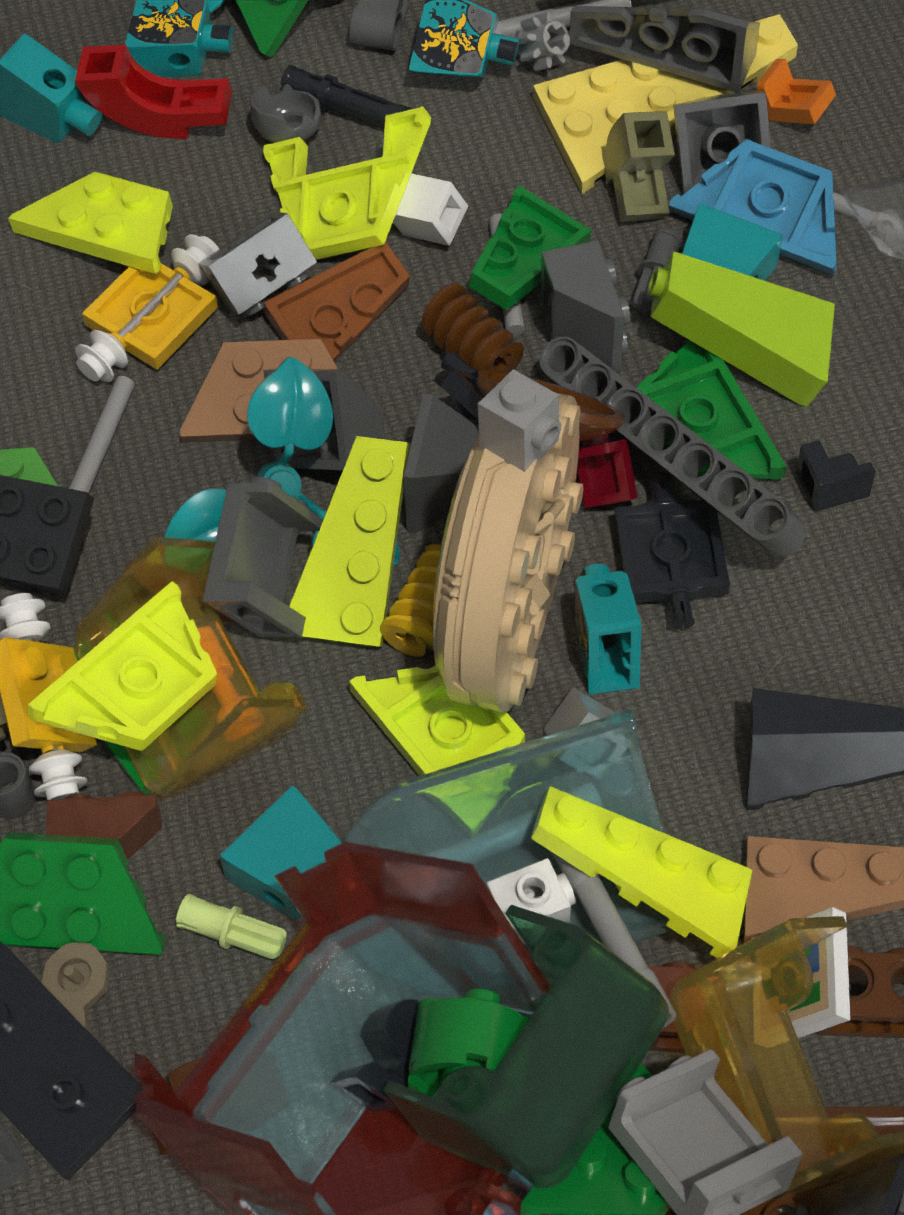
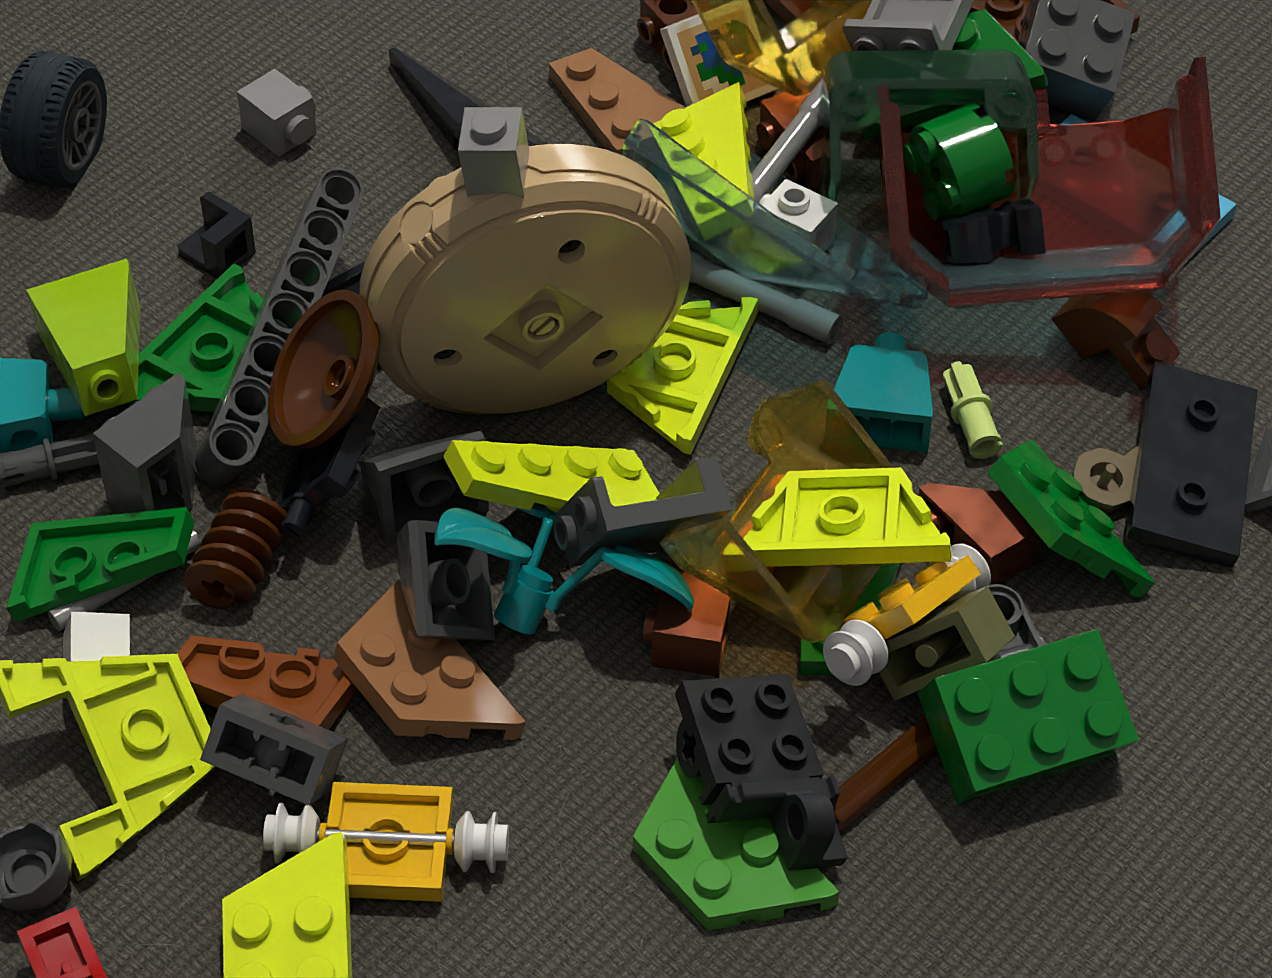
camera: 125 degrees left, 10 degrees down
(102, 434) = (577, 795): light grey bar -> none
(411, 616) = (567, 422): yellow piece -> none

